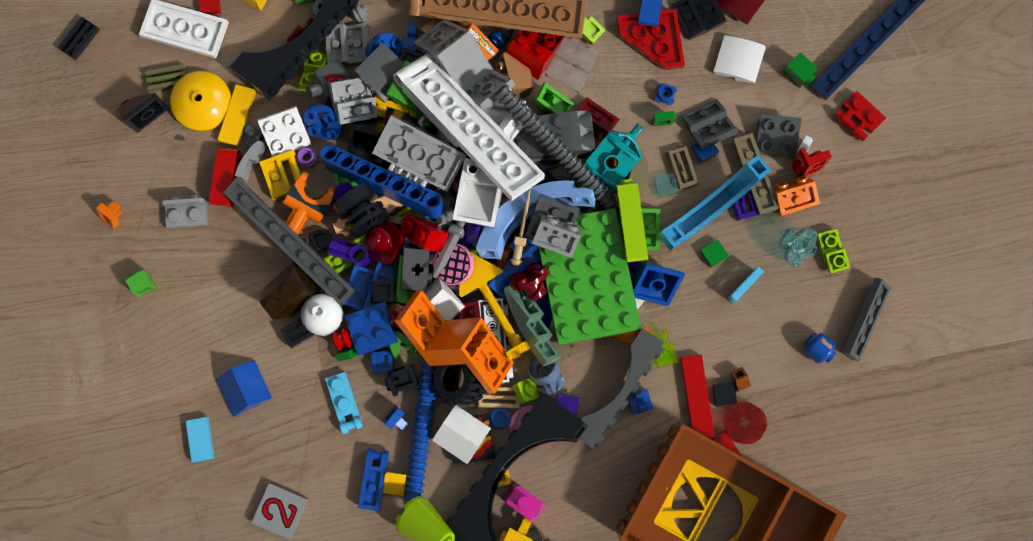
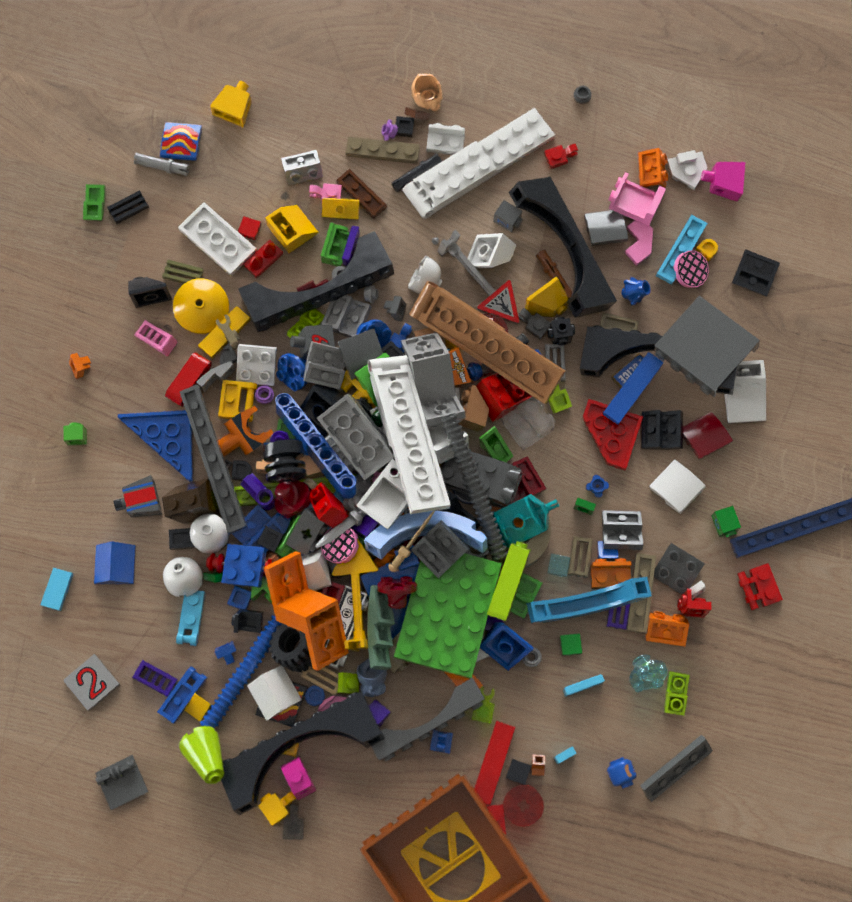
camera: 25 degrees right, 5 degrees down
(42, 48) = (94, 202): none -> bright green slope
(185, 152) = (165, 345): none -> bright pink slope
(186, 212) = (141, 393): light grey bracket -> none
(231, 240) = (167, 434): none -> blue tile
(236, 314) = (140, 498): none -> torso
(238, 27) = (263, 258): none -> red tile
(245, 115) = (231, 335): none -> dark tan plate
(317, 368) = (182, 576): none -> white cylinder
(320, 477) = (139, 670): none -> dark purple slope
(391, 14) = (396, 308): none -> dark grey tile
(557, 235) = (437, 562): light grey bracket -> none
(690, 284) = (537, 654): none -> light grey plate
(718, 170) = (609, 573): none -> orange bracket
(760, 358) = (564, 755): none -> medium azure tile

